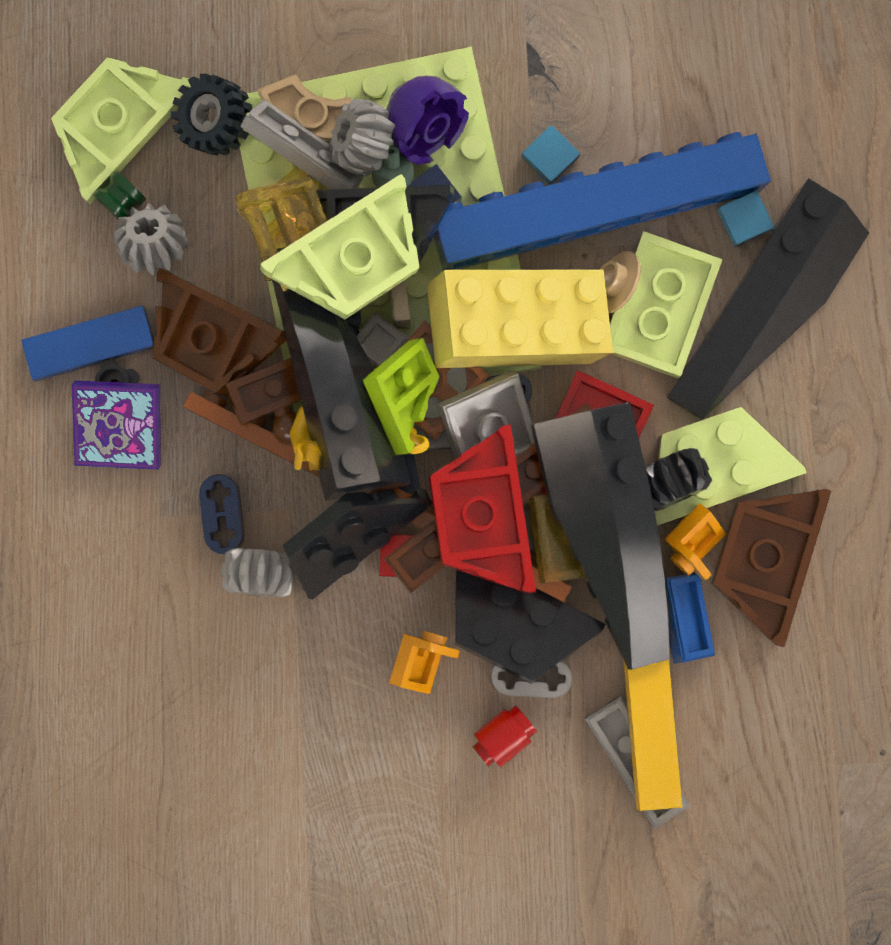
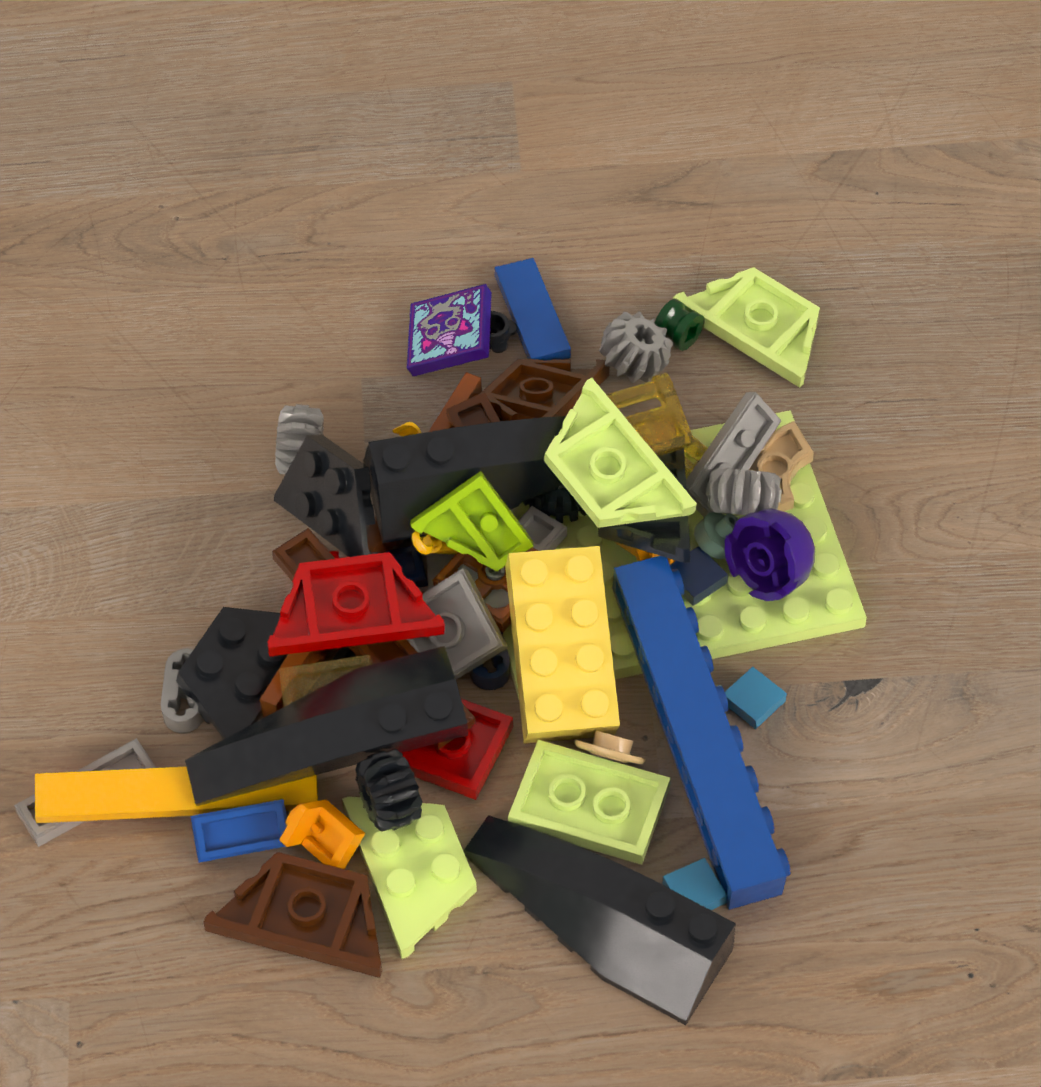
camera: 90 degrees right, 30 degrees down
(211, 514) = (361, 421): dark blue beam -> none
(231, 110) = (775, 382): black bush -> none
(400, 306) = (575, 536): dark tan tile -> none
(419, 661) = (204, 584): light orange bracket -> none
(504, 737) = (123, 661): red brick -> none

